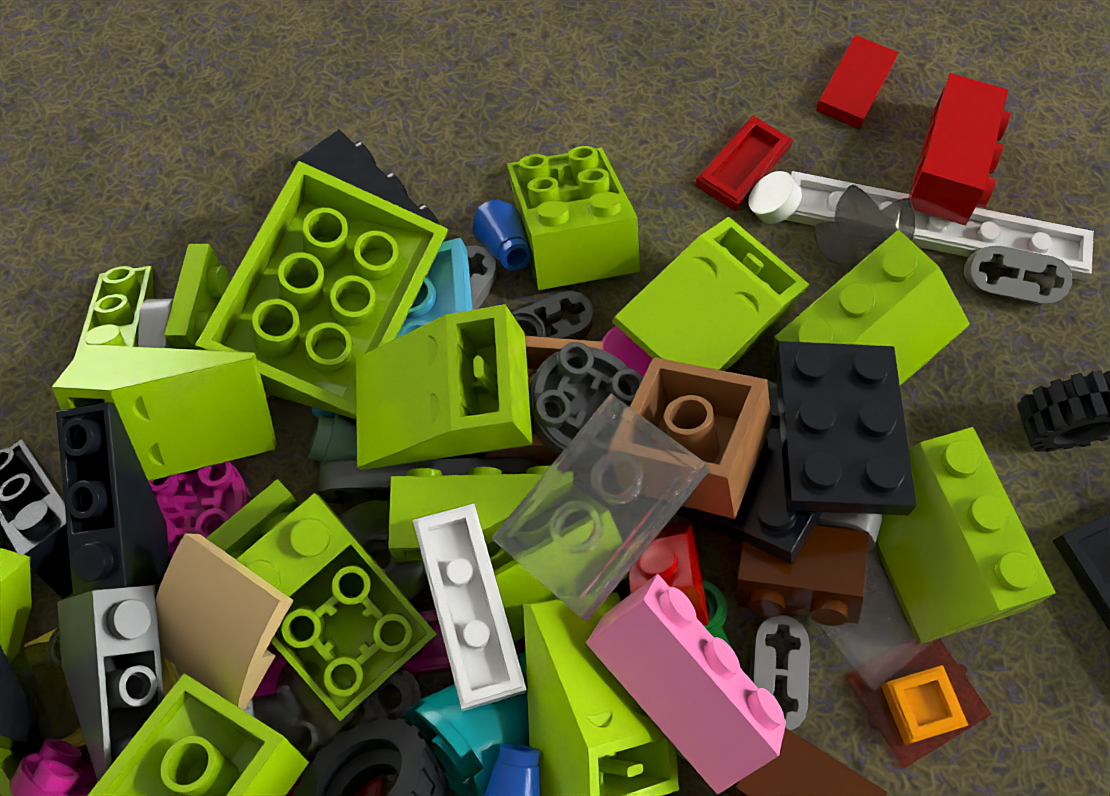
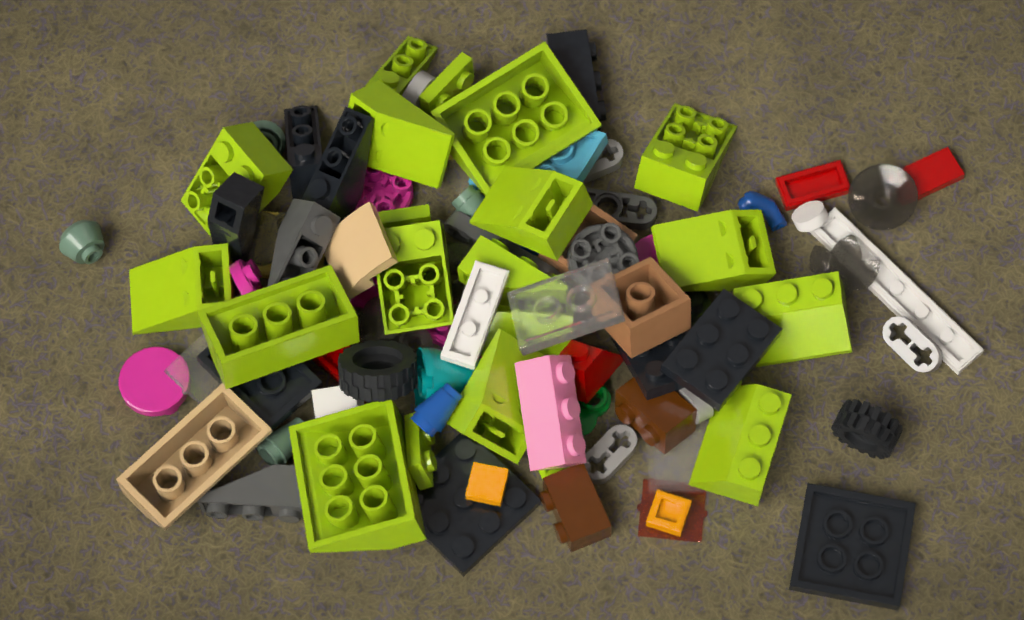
camera: 40 degrees right, 0 degrees up
(502, 233) = (634, 142): blue cone -> none
(696, 218) = (771, 212): none -> blue arm
(840, 107) = (879, 182): none -> clear smoke dish
(960, 150) = (939, 252): red brick -> none

